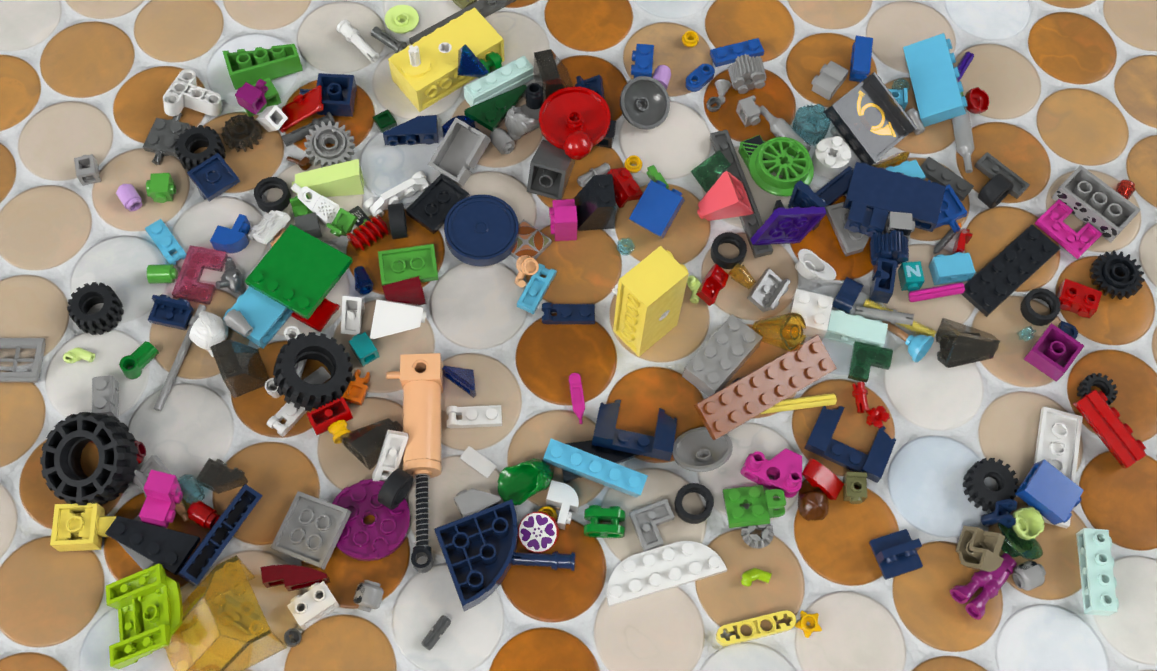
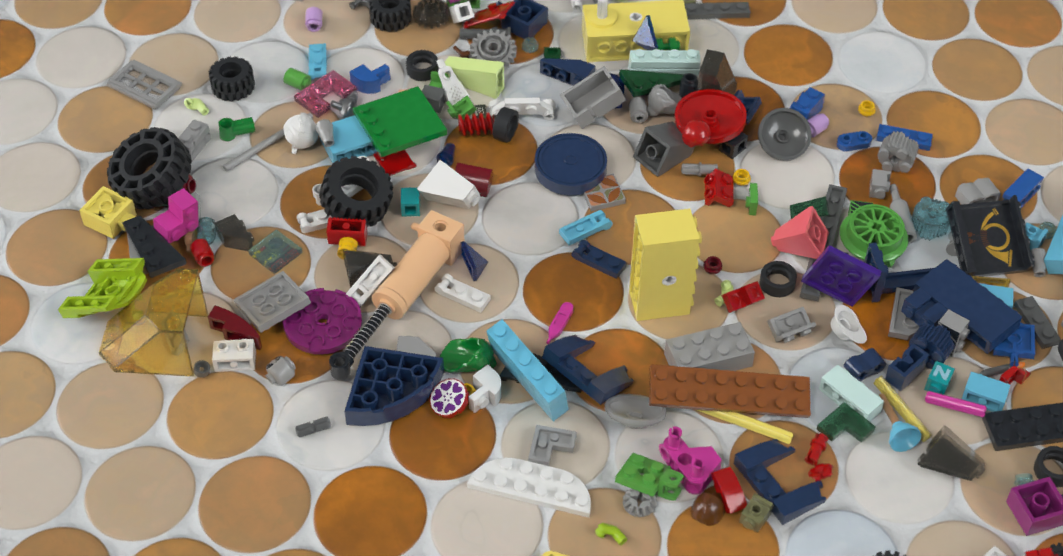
camera: 35 degrees right, 15 degrees down
(161, 187) = (341, 22): bright green brick -> none
(171, 312) = (283, 106): dark blue bracket -> none
(213, 177) = (384, 30): dark blue bracket -> none
(219, 535) = (210, 261): dark blue brick -> none
(239, 367) = (303, 163): clear smoke slope -> none
(268, 226) = (406, 82): white plate -> none
(271, 471) = (275, 251): none -> clear light blue tile
(352, 313) = (418, 171): white slope -> none
(357, 390) = (383, 228): orange plate -> none
(358, 117) = (530, 45): none -> clear light blue plate
(395, 489) = (354, 293): black tyre -> none
(408, 263) = (502, 161): bright green plate -> none
(435, 203) = (543, 127): black plate -> none
(478, 462) = (441, 327): white sticker -> none
(526, 266) = (587, 205): light nougat piece -> none
(552, 560) = (446, 426): dark blue pin -> none
(563, 220) = (646, 187): dark pink brick -> none
(596, 204) = (684, 187): black slope -> none
(597, 514) = (510, 421): green brick -> none
(657, 208) = (734, 215): blue brick -> none
(703, 491) = (596, 462): black tyre -> none
(712, 101) = (848, 163): dark grey hinge -> none
(722, 87) = (869, 156): light grey piece -> none
(742, 276) = (775, 302): clear yellow cone -> none
(782, 331) = (777, 355): clear yellow cone -> none
(814, 310) = (814, 358): white brick -> none
(831, 157) = (930, 249): white brick -> none
(885, 315) = (893, 398): light grey pin -> none

